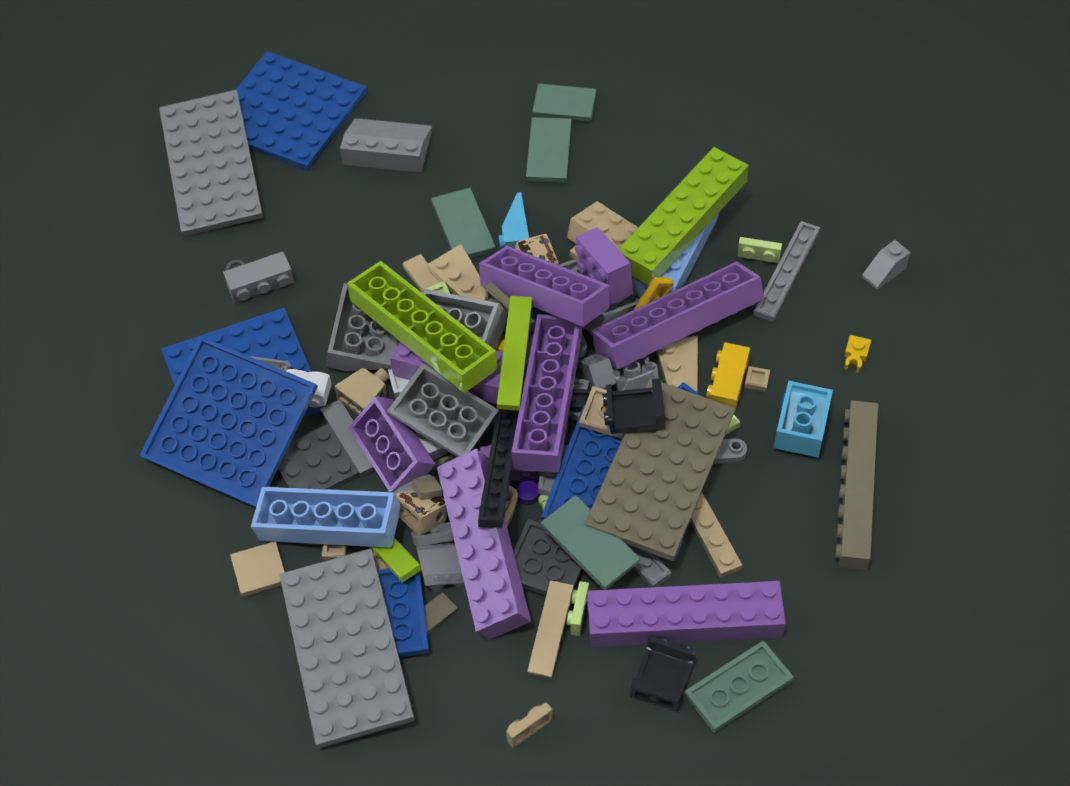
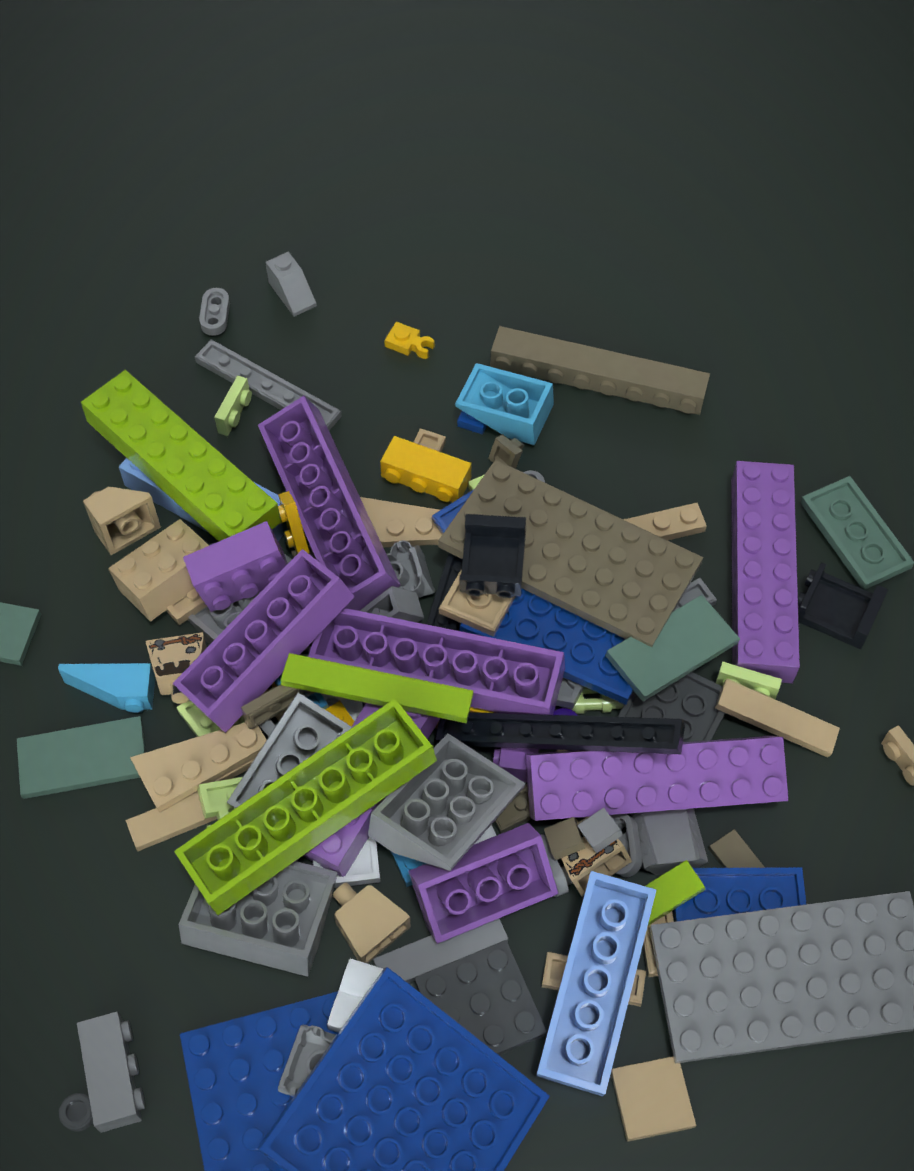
camera: 85 degrees left, 5 degrees up
(431, 503) = (600, 830): none -> light grey tile
(637, 197) = (121, 516): none -> tan slope
(759, 429) = (506, 451): none -> dark tan tile
(847, 224) = (214, 317): none -> light grey plate

